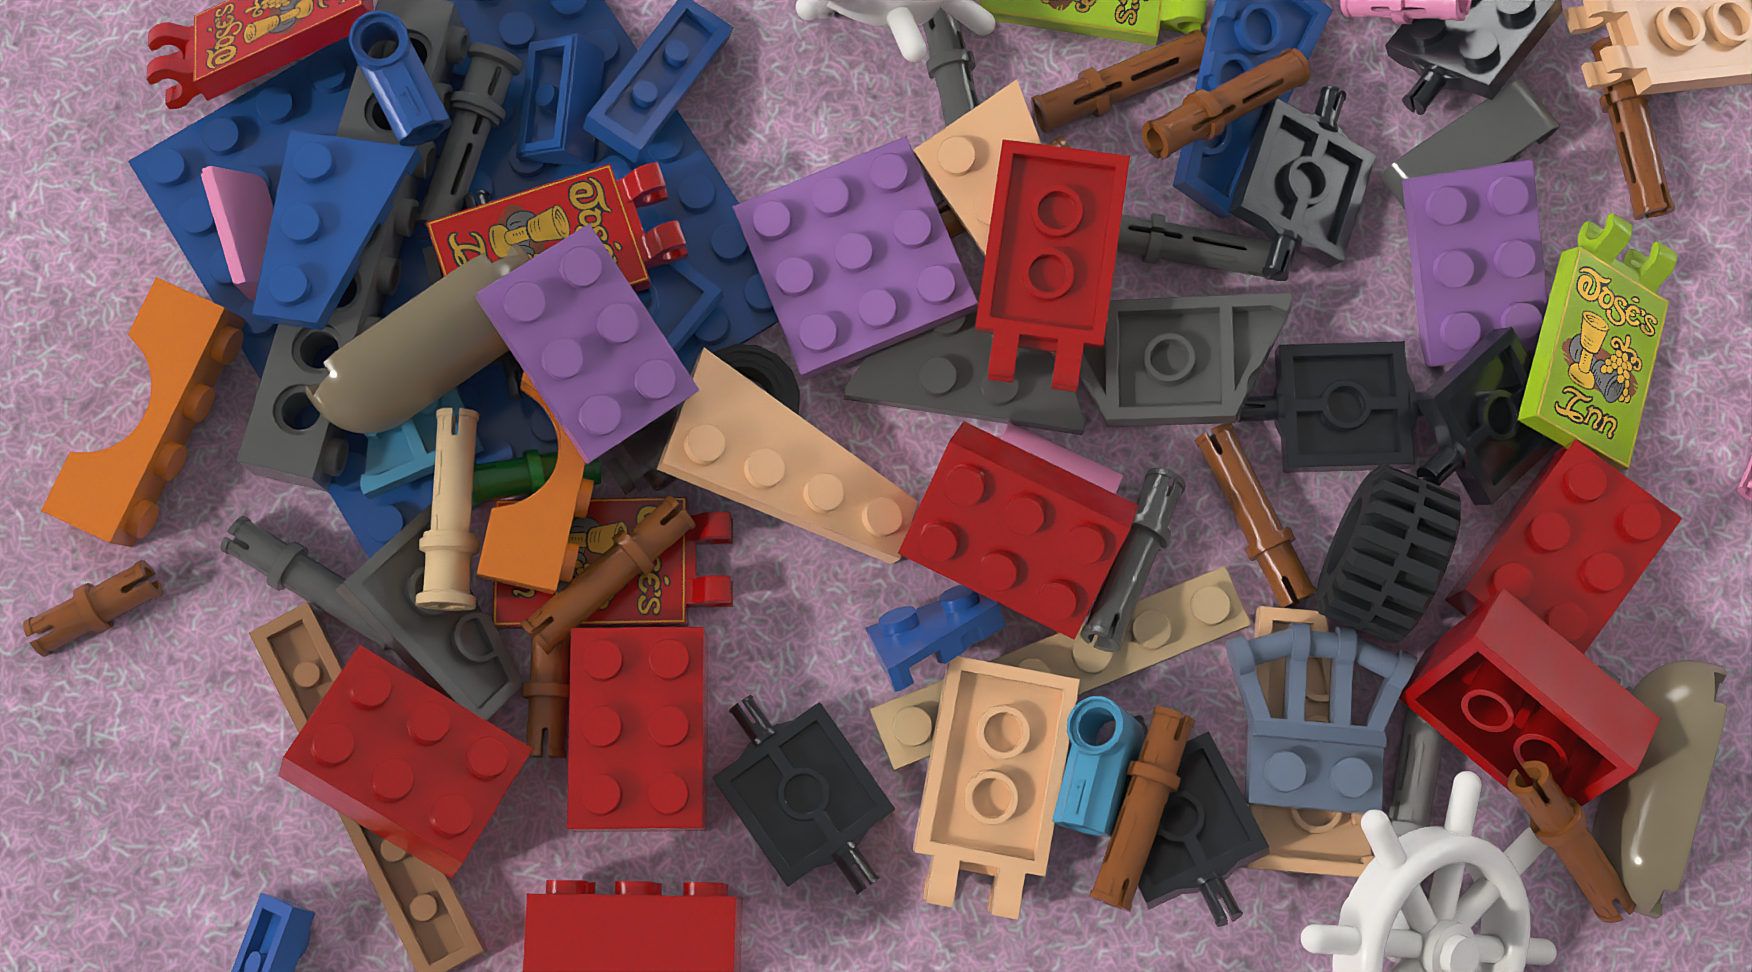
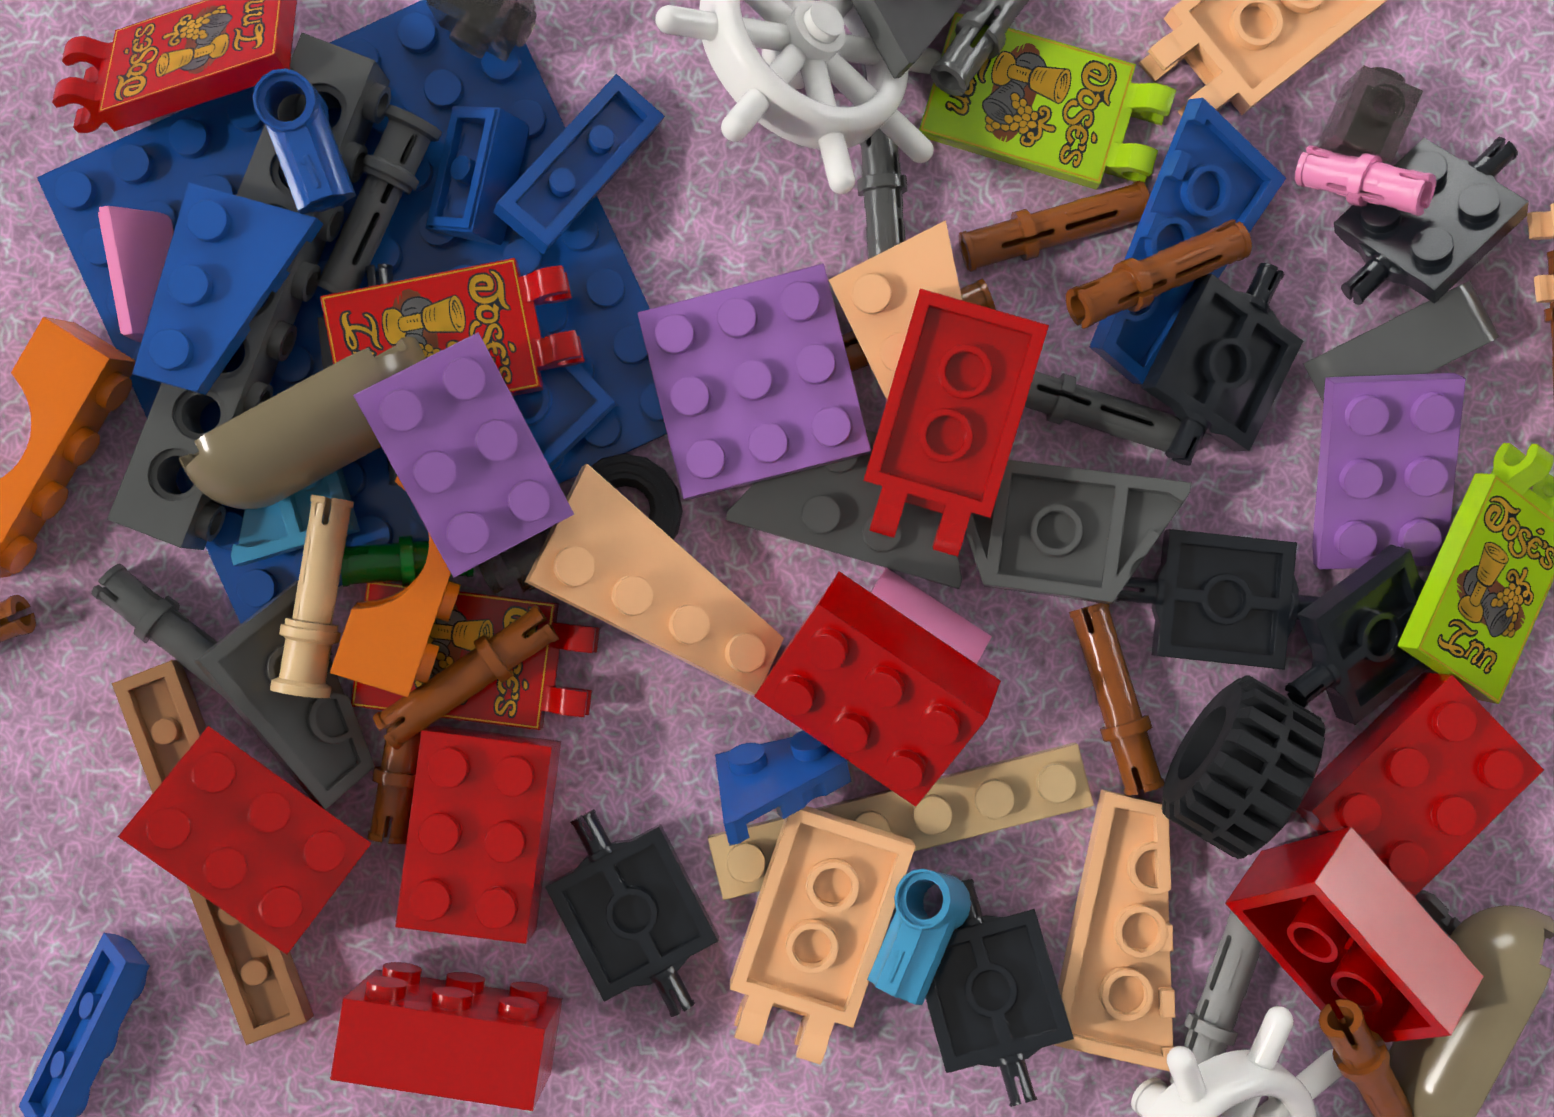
camera: 10 degrees right, 10 degrees up
(1134, 561) = (965, 773): dark grey pin -> none
(1151, 782) = (950, 994): dark orange pin -> none
(1310, 762) = (1133, 956): sand blue plate -> none

